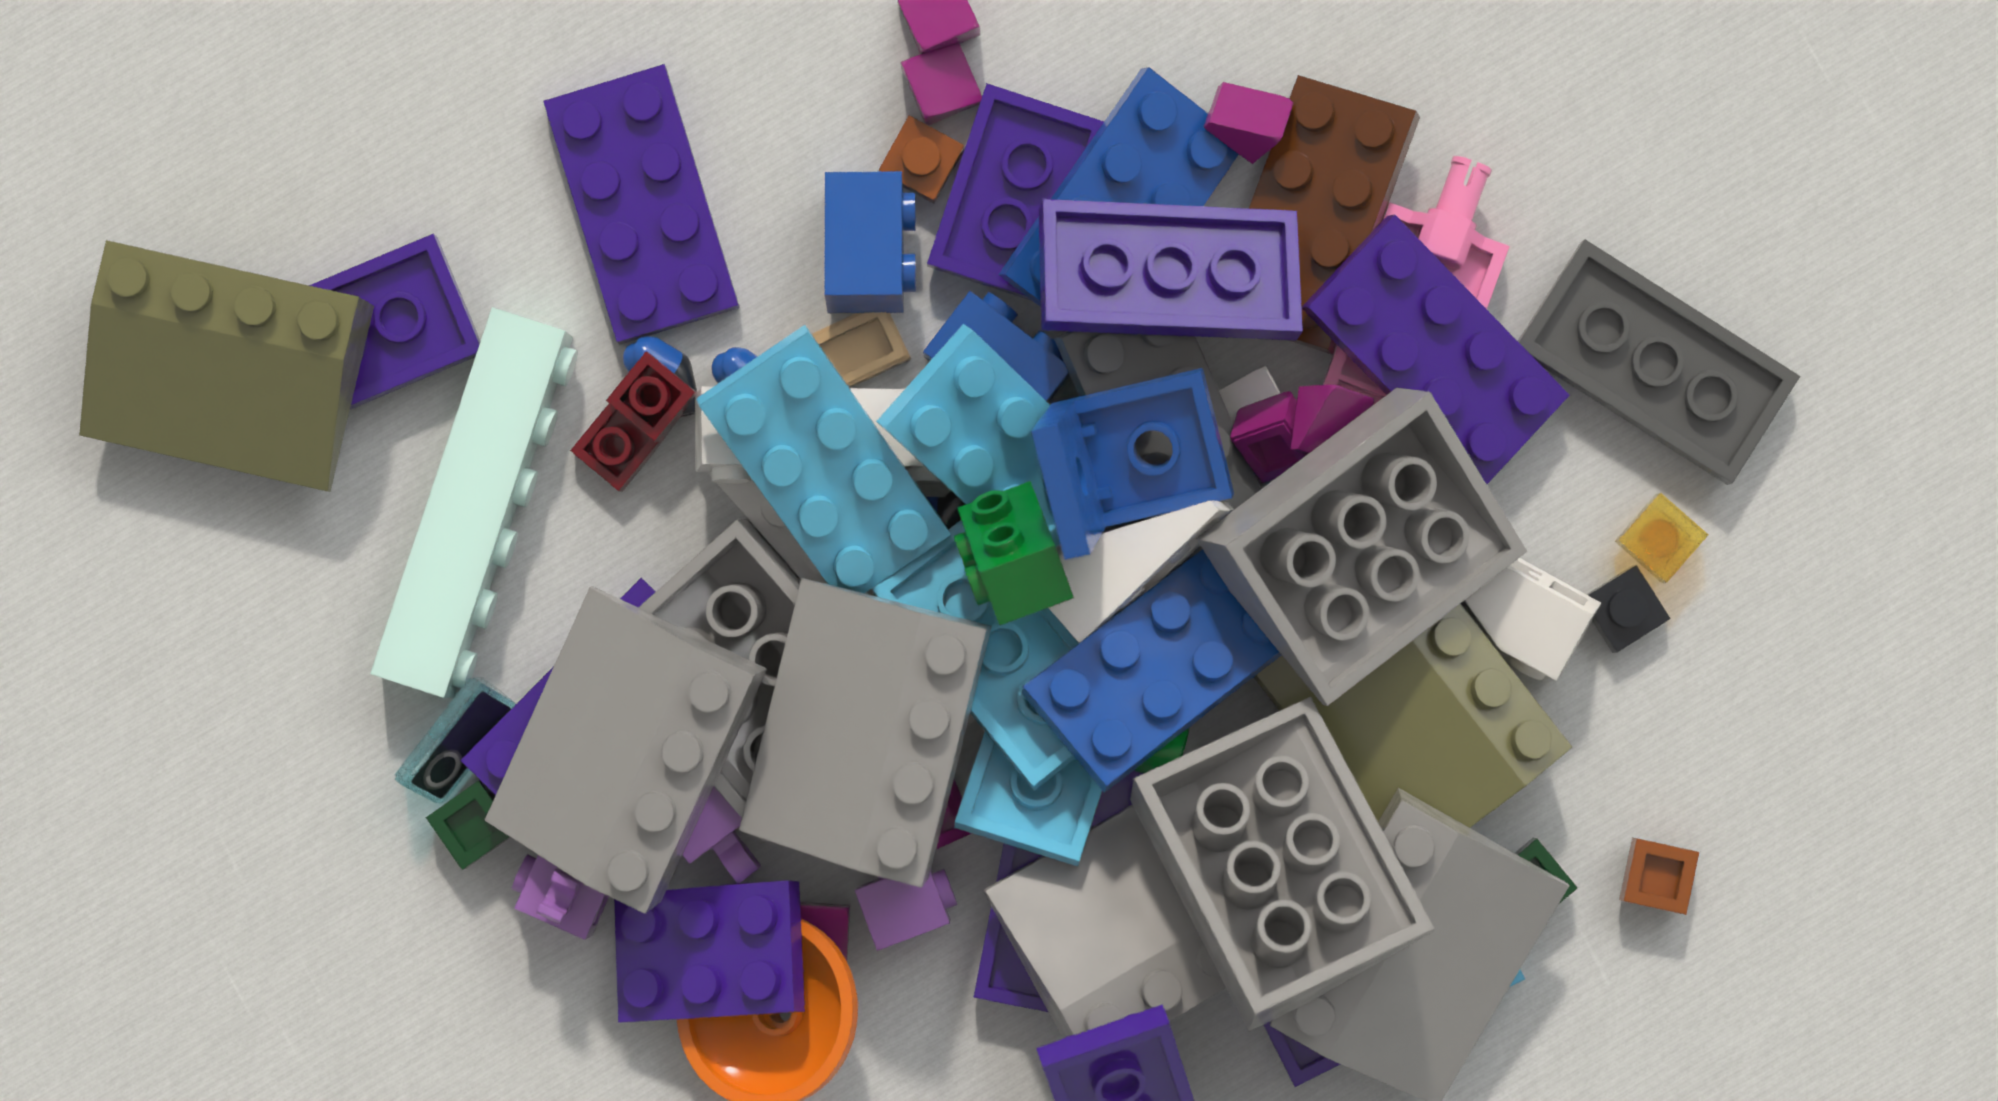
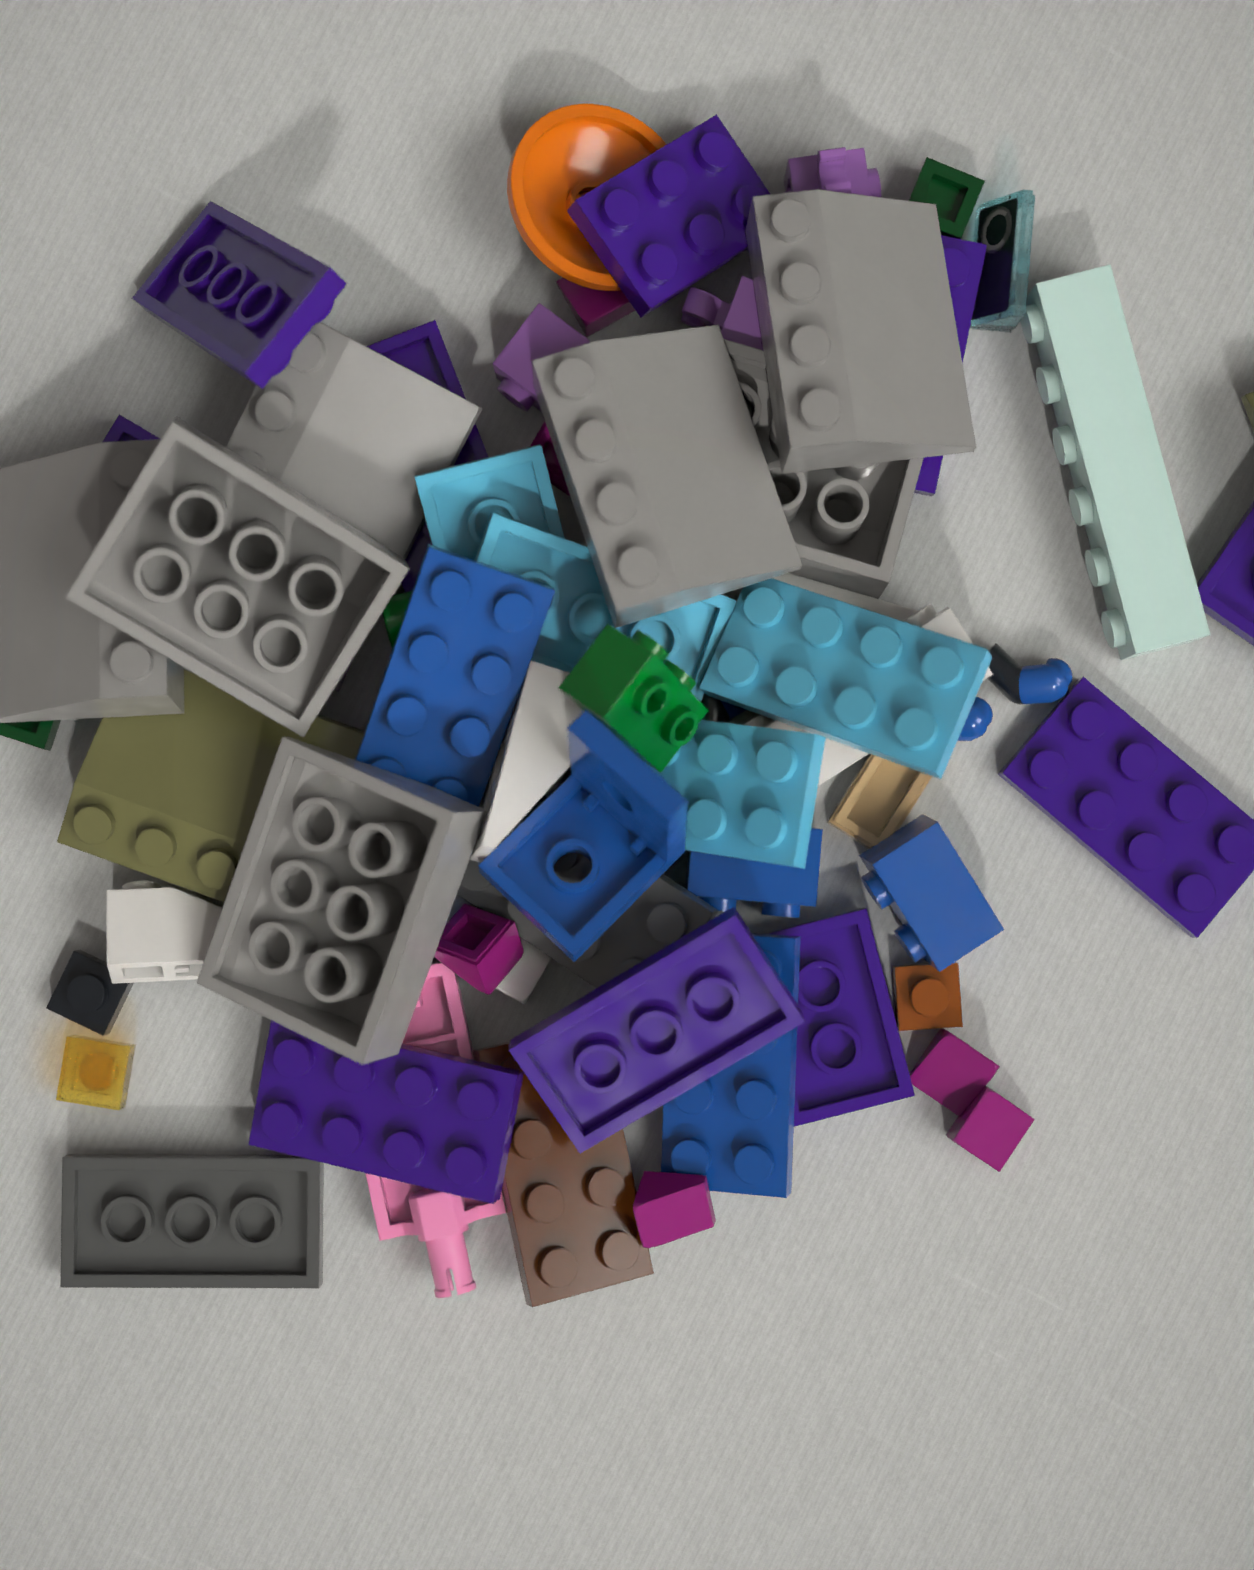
camera: 145 degrees right, 0 degrees up
(634, 421) = (1025, 617): dark red slope -> none
(1324, 412) = (446, 991): magenta slope -> none

